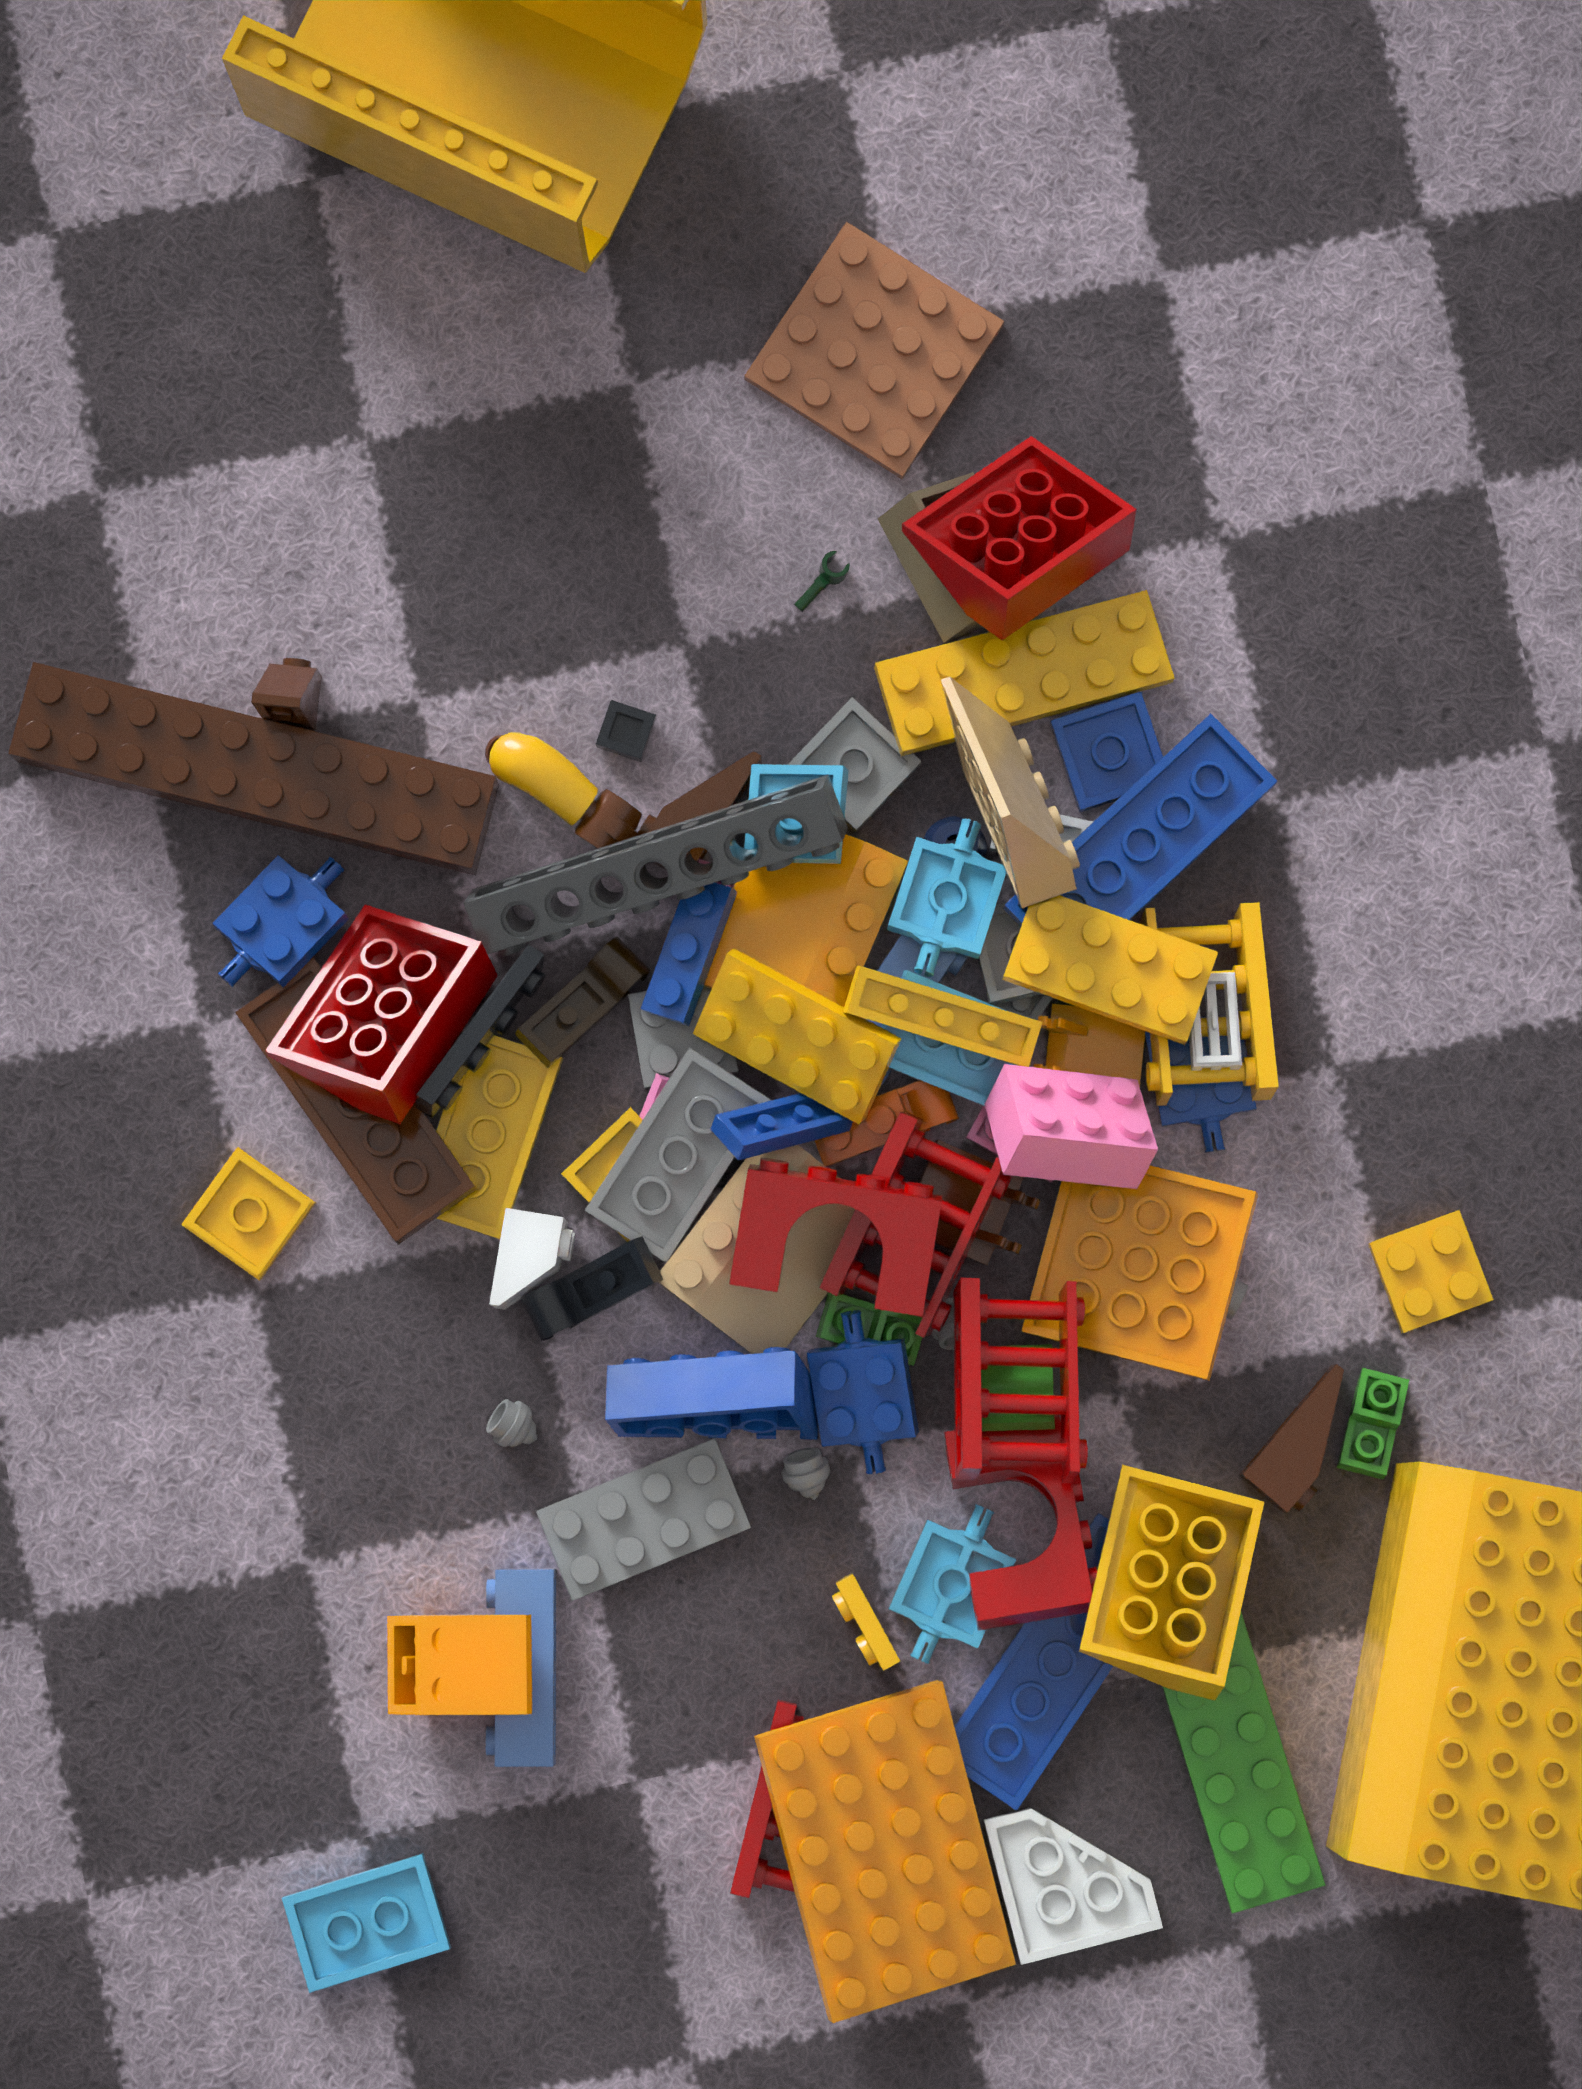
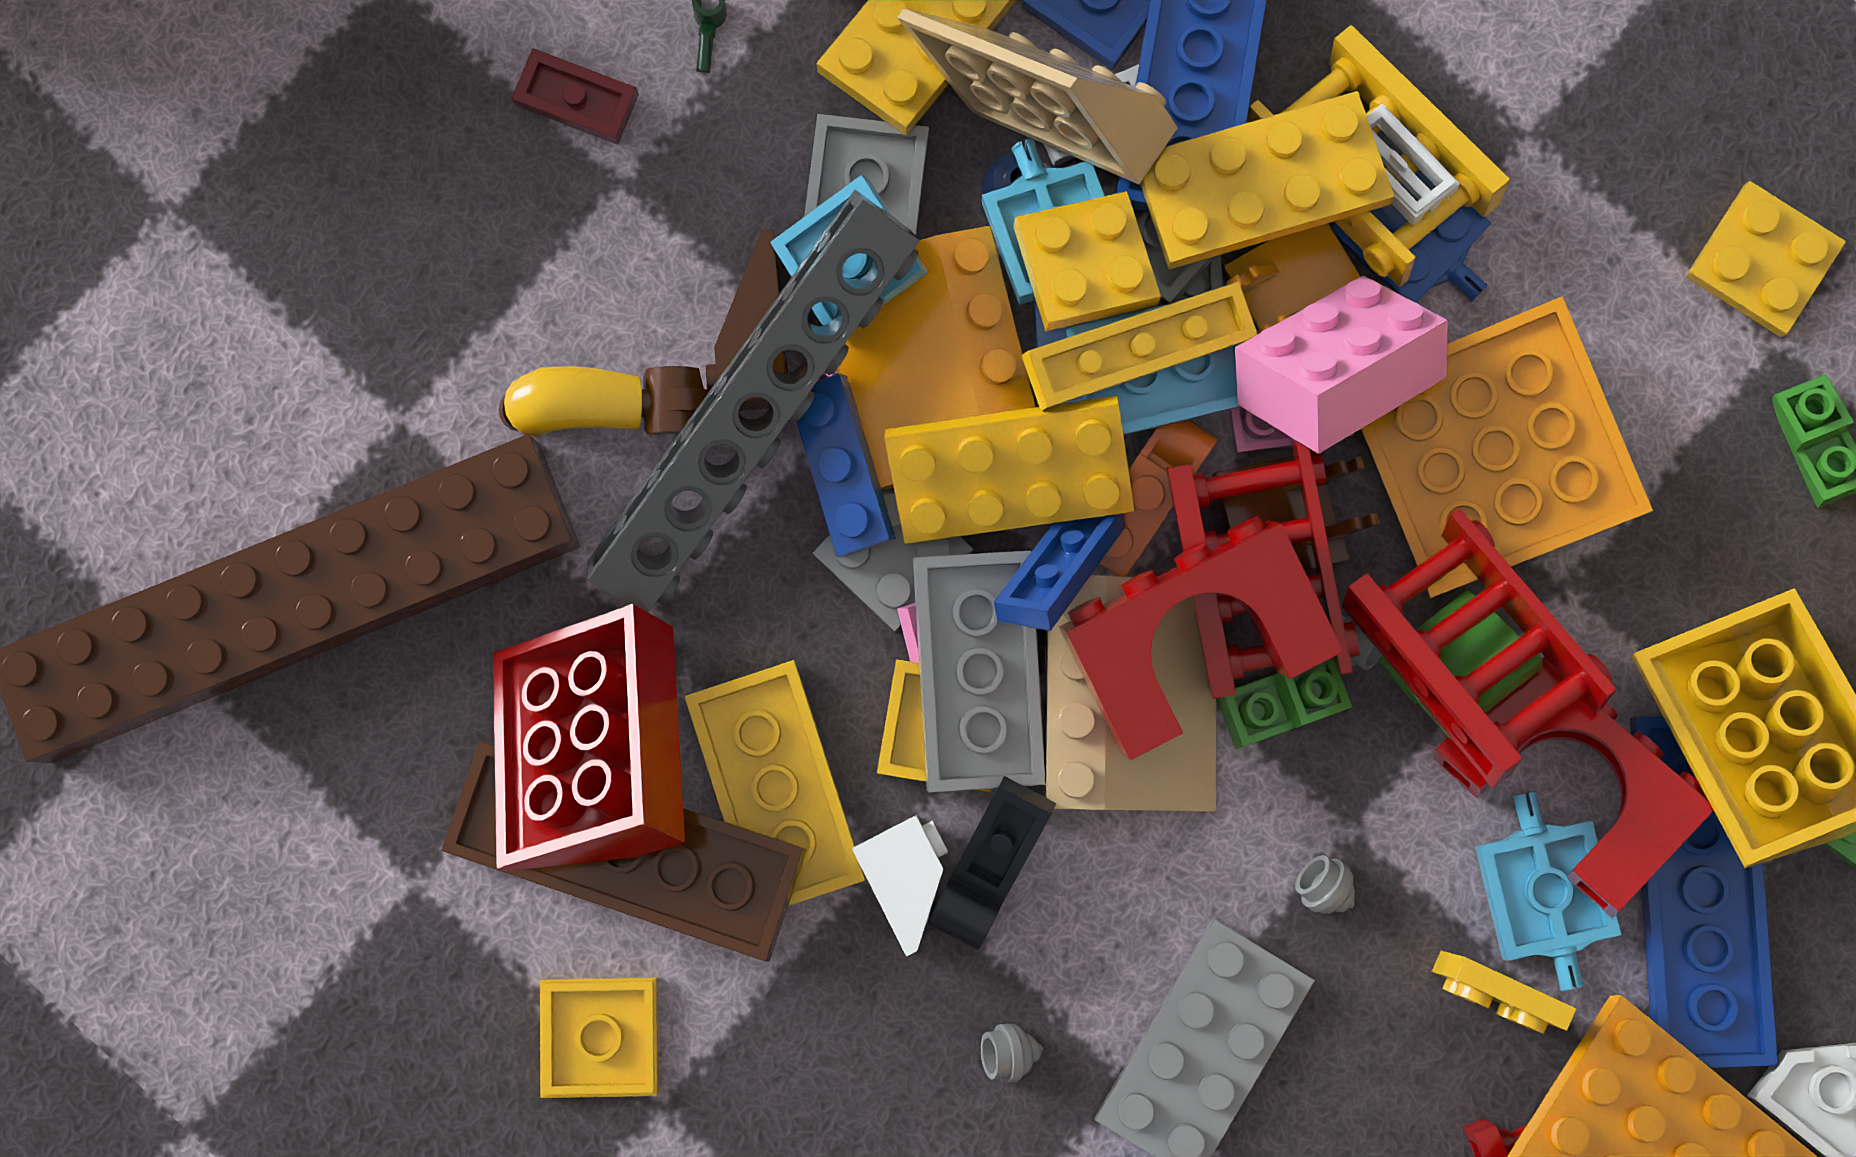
camera: 35 degrees left, 0 degrees up
(280, 921) = (421, 729): blue plate -> none
(289, 693) = (265, 501): reddish brown slope -> none
(470, 1048) = (698, 715): black plate -> none
(582, 1002) = (774, 592): dark brown plate -> none
(626, 730) = (624, 303): black plate -> none
(697, 563) = (575, 96): none -> dark red plate
(712, 1395) = (1184, 881): wedge -> none
(863, 1392) = (1325, 768): blue plate -> none
(949, 933) = (1086, 261): none -> yellow plate
(1295, 1452) = (1774, 518): reddish brown slope -> none

